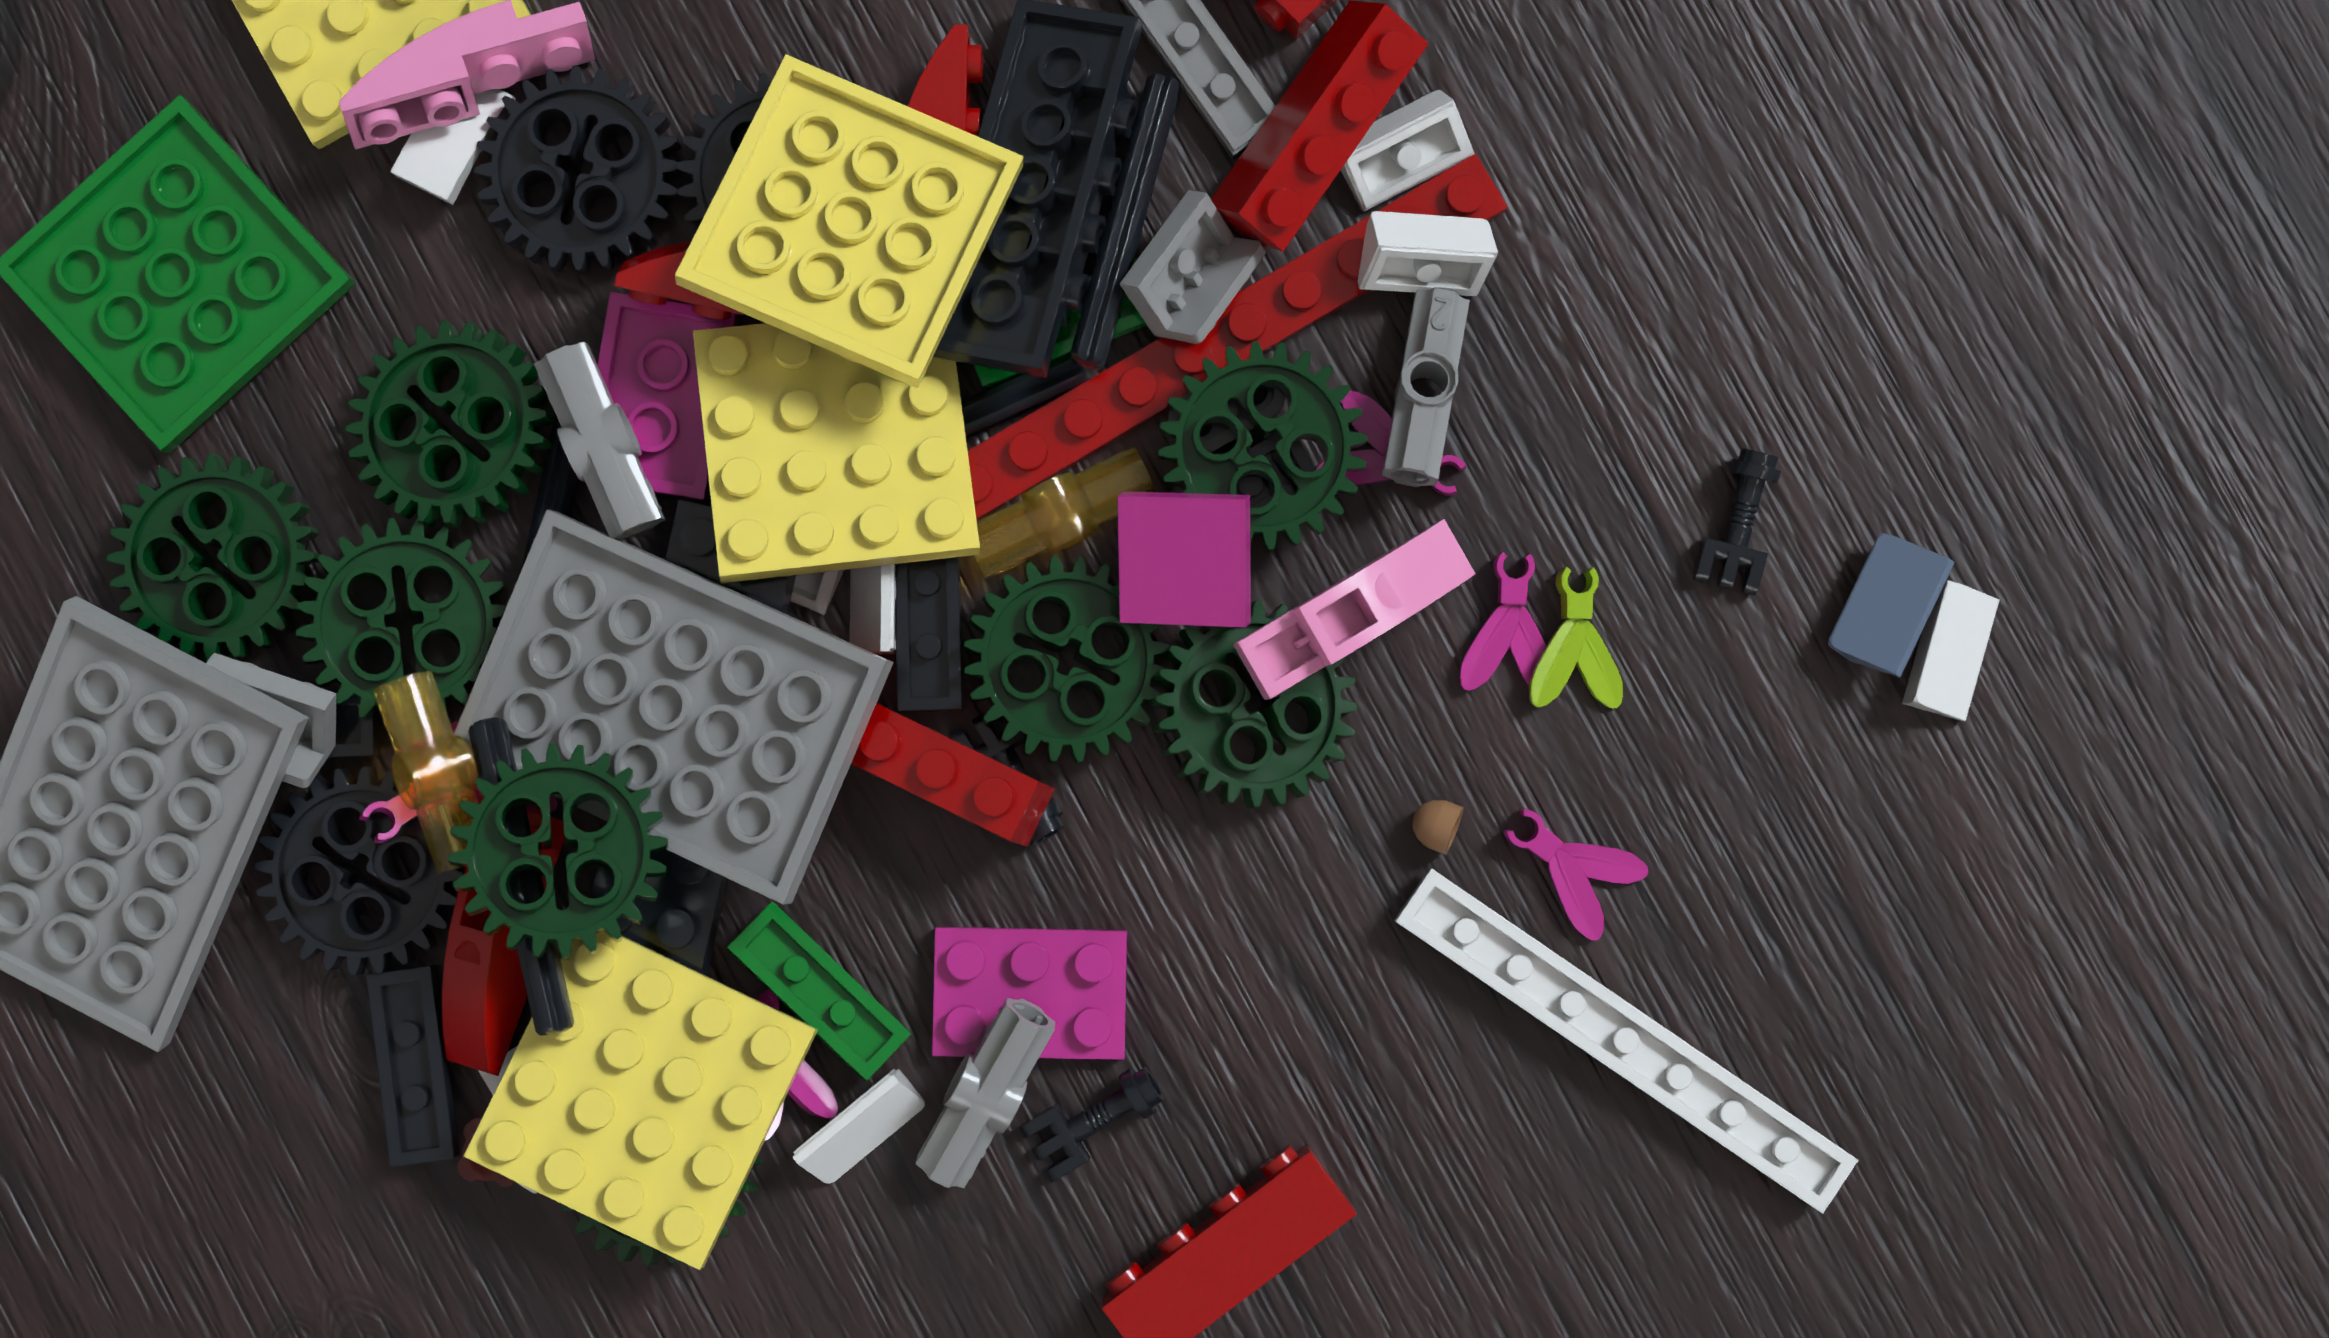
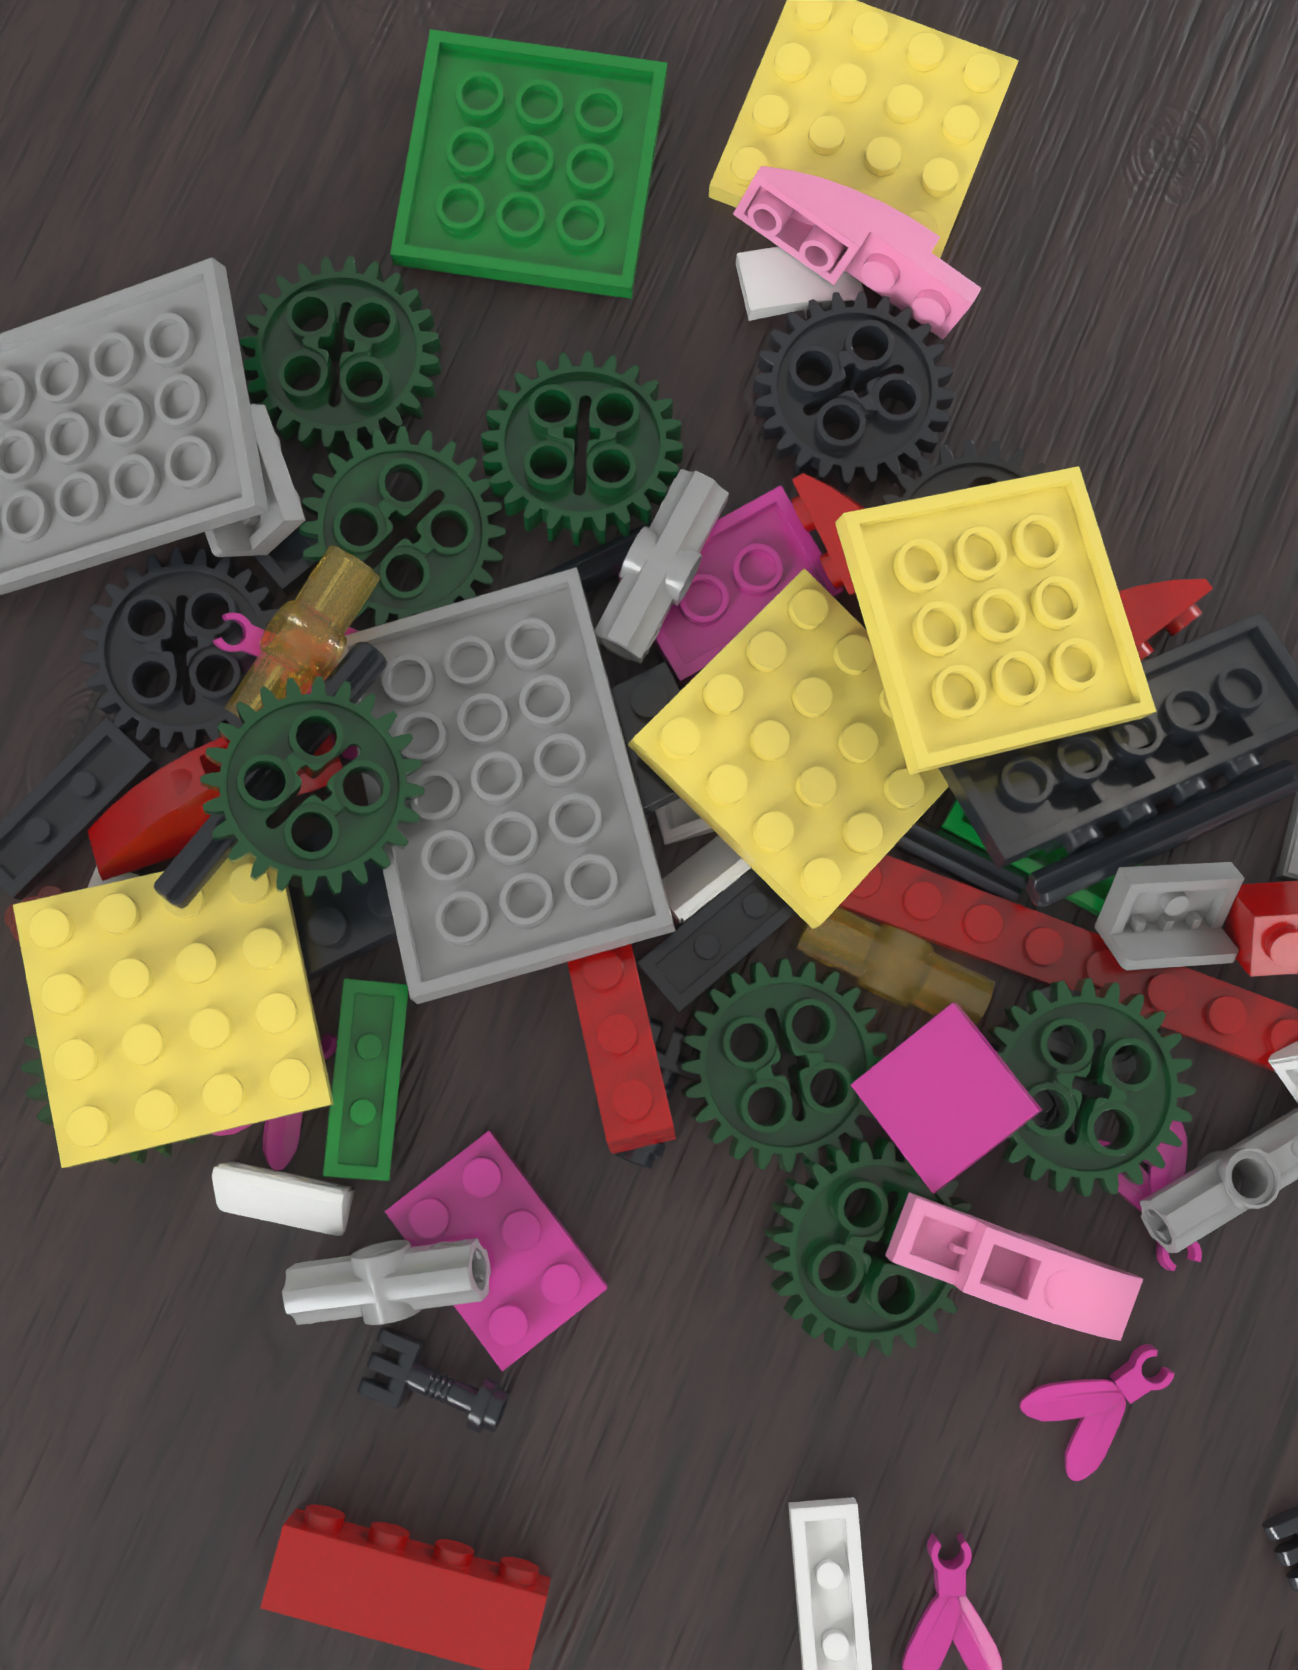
camera: 50 degrees right, 5 degrees down
(1437, 824) = (895, 1476): medium nougat hinge -> none
(1576, 644) = (1130, 1473): lime piece -> none

